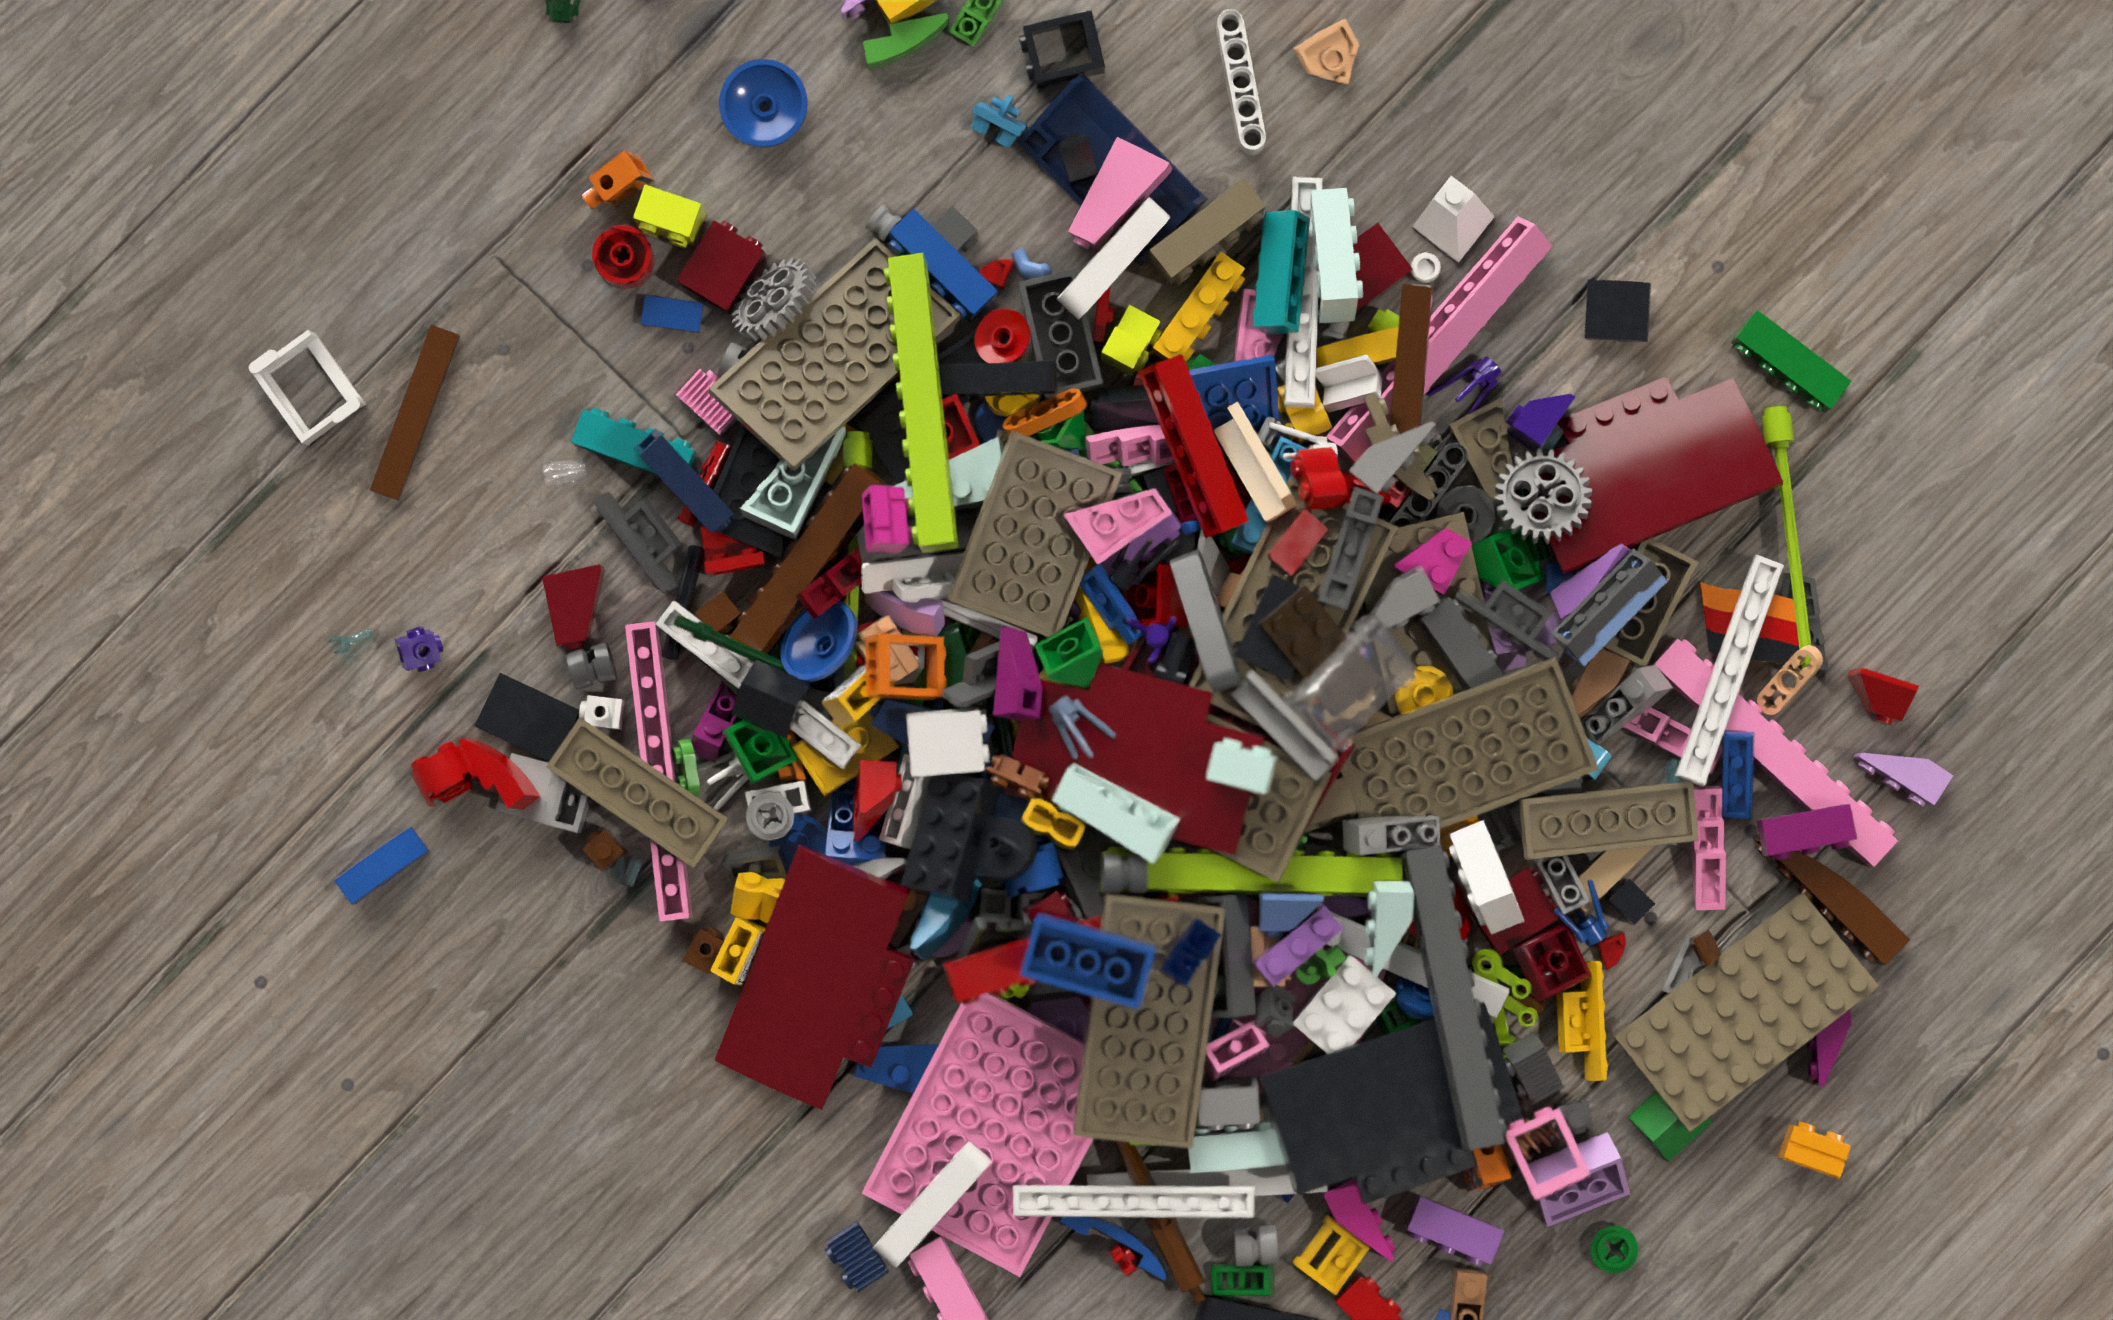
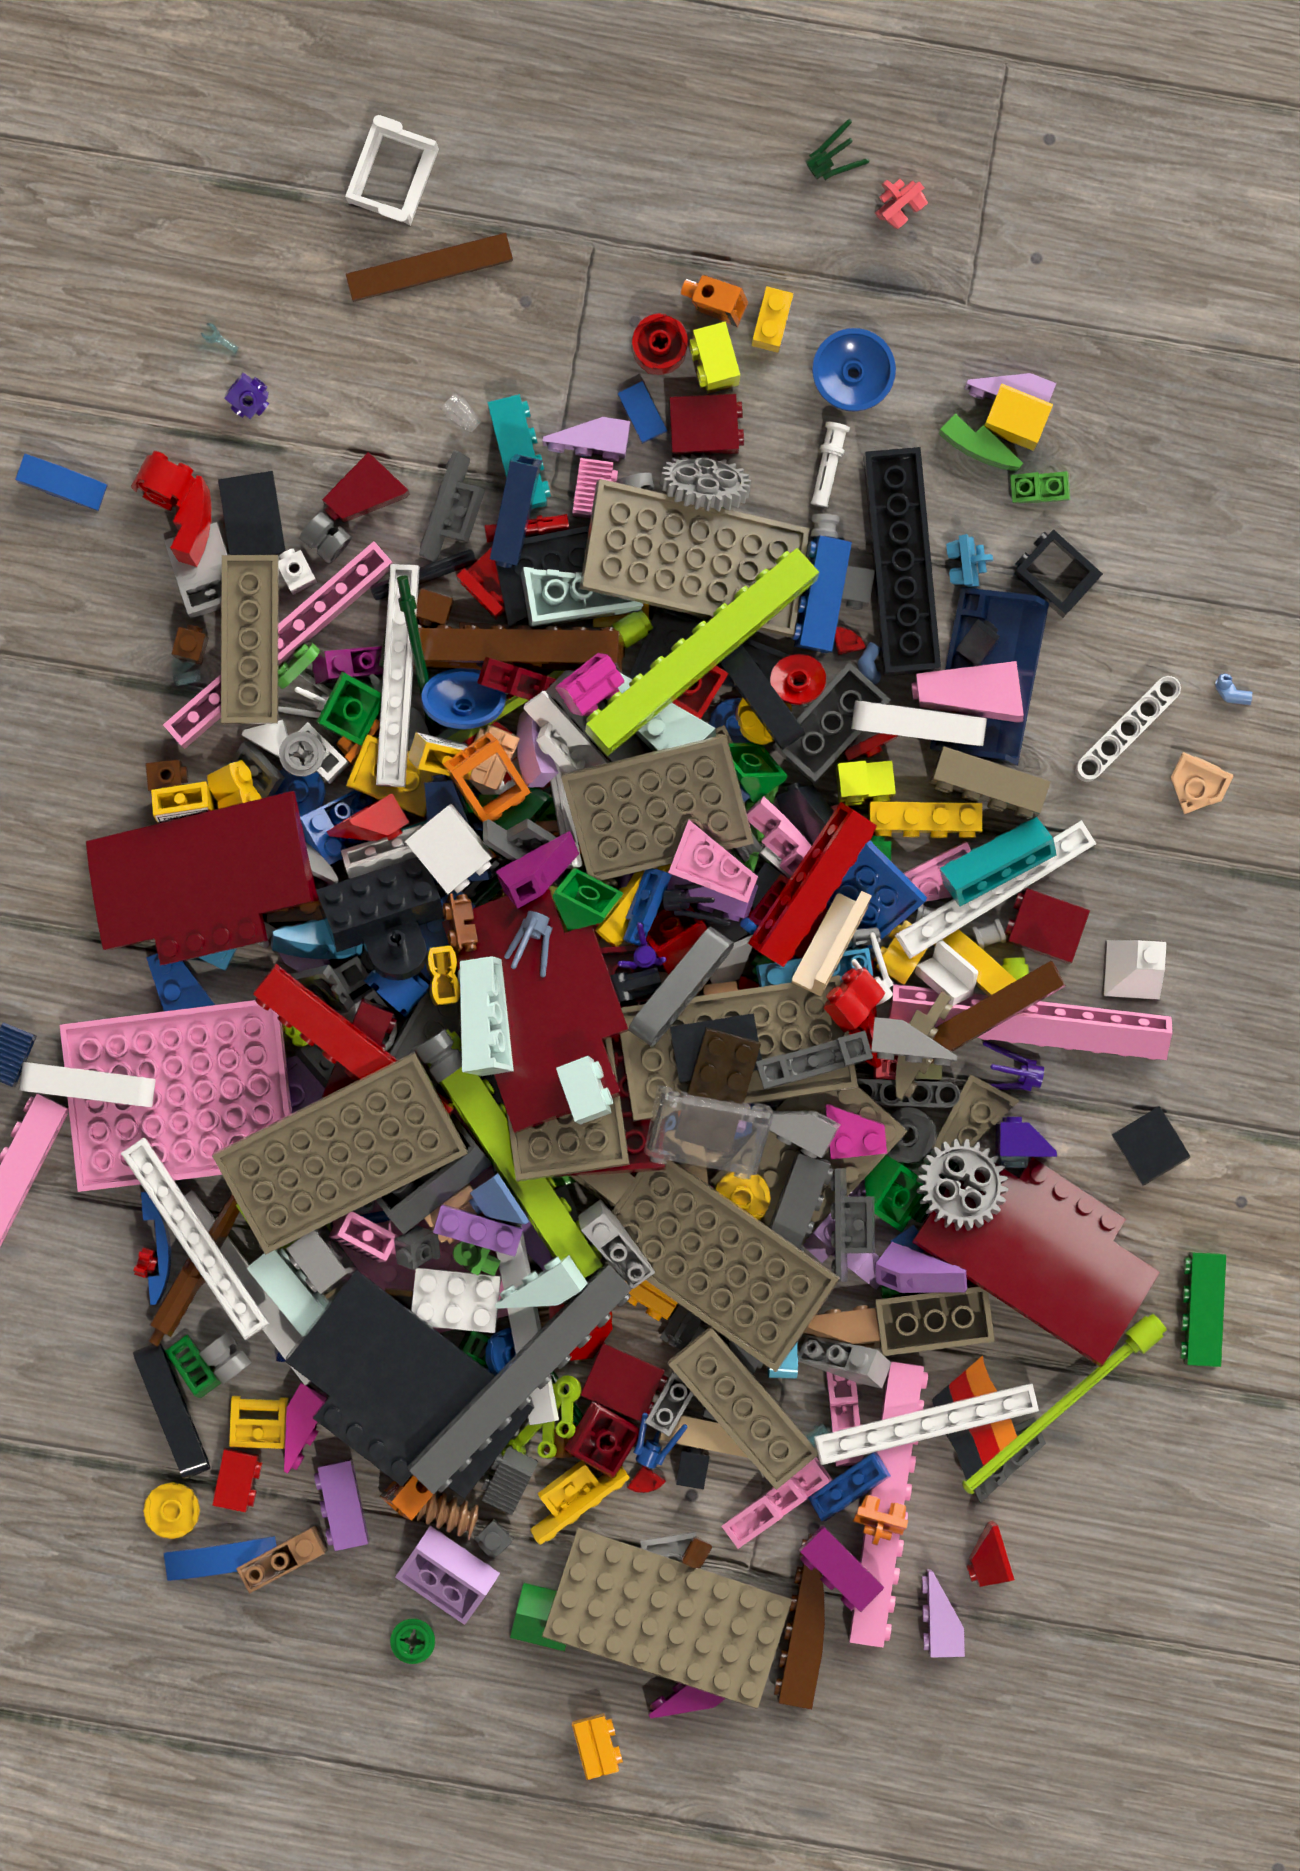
camera: 50 degrees right, 0 degrees up
(667, 366) = (599, 436): none -> lavender slope
(669, 144) = (772, 319): none -> yellow brick
(733, 836) = (268, 736): none -> white slope
(770, 698) = (392, 691): black slope -> none
(821, 172) = (831, 452): none -> white pin
(960, 176) = (902, 561): none -> black brick
(1046, 413) = (760, 753): orange beam -> none
(1089, 960) = (353, 1073): blue brick -> none
(1189, 952) = (414, 1147): clear blue slope -> none
(1284, 726) = (639, 1103): light grey fence -> none
(1297, 542) = (791, 1016): red slope -> none
(1335, 254) = (1039, 892): light aqua wedge -> none
(1425, 267) = (1081, 972): white tile -> none
(1485, 878) = (631, 1341): white brick -> none
(1559, 1182) = (433, 1559): bright pink window -> none
(1608, 607) = (909, 1294): dark grey piece -> none
(1796, 757) = (881, 1524): none -> orange hips
(1801, 676) = (959, 1483): light nougat beam -> none

